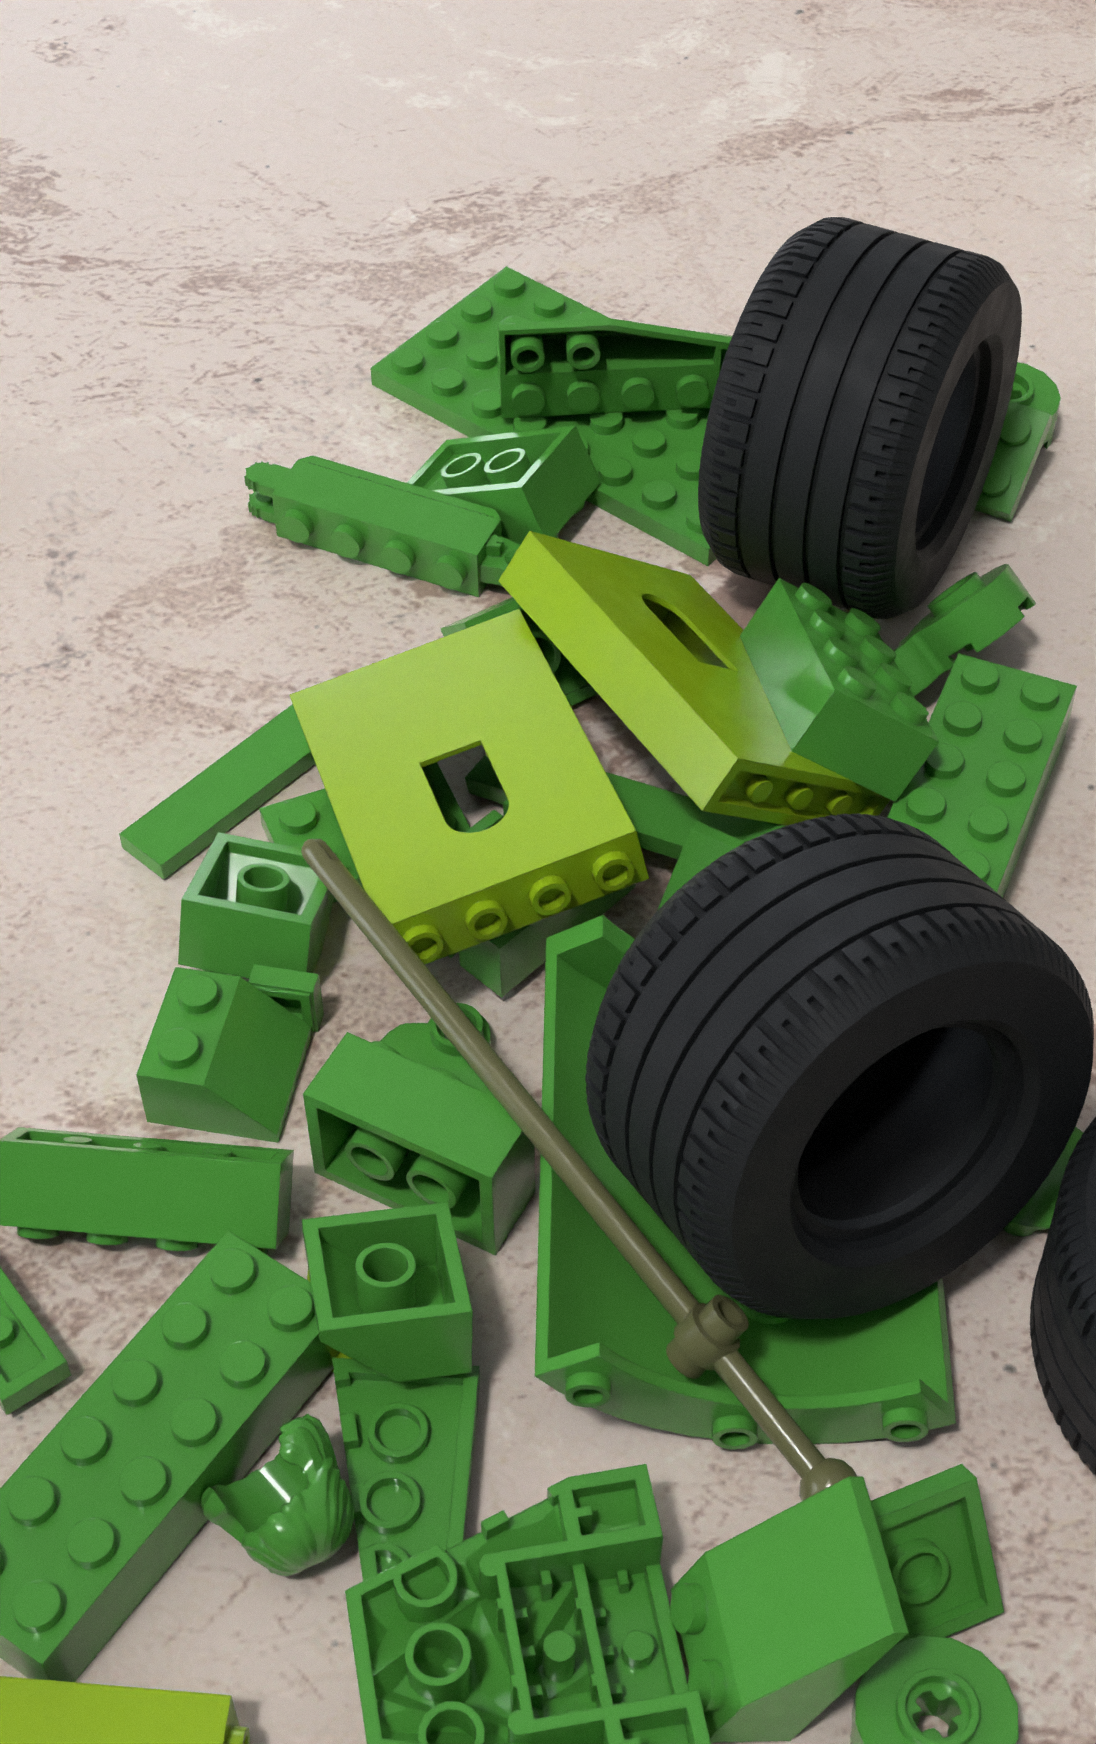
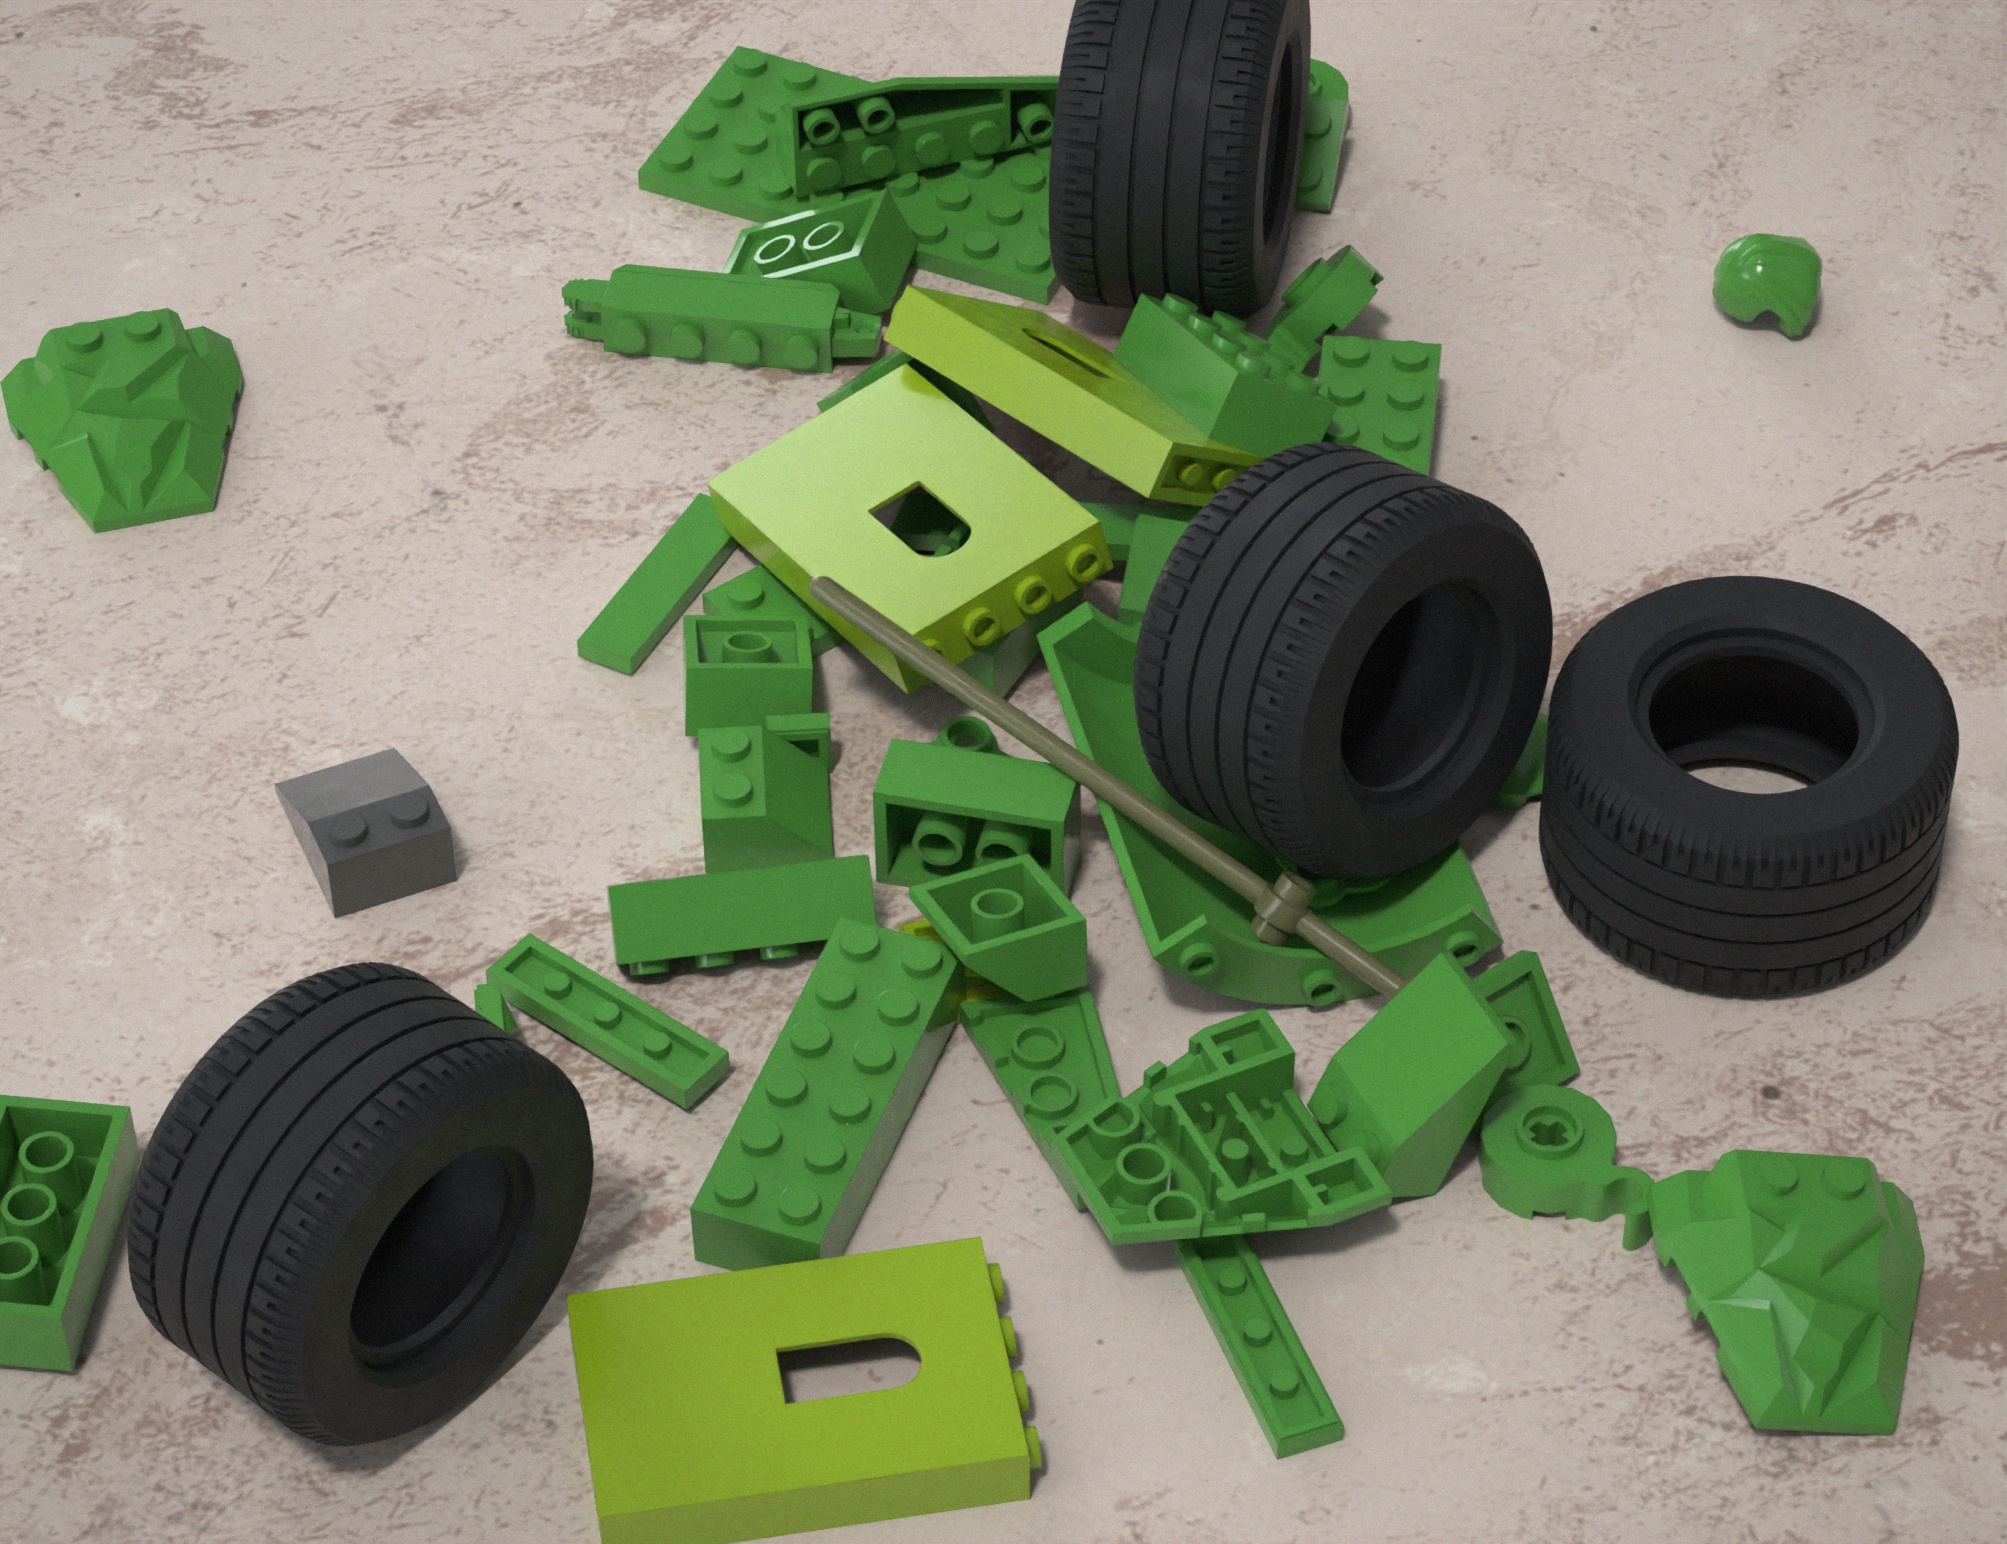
camera: 15 degrees left, 5 degrees down
(292, 1507) = (974, 1110): bright green hair -> none

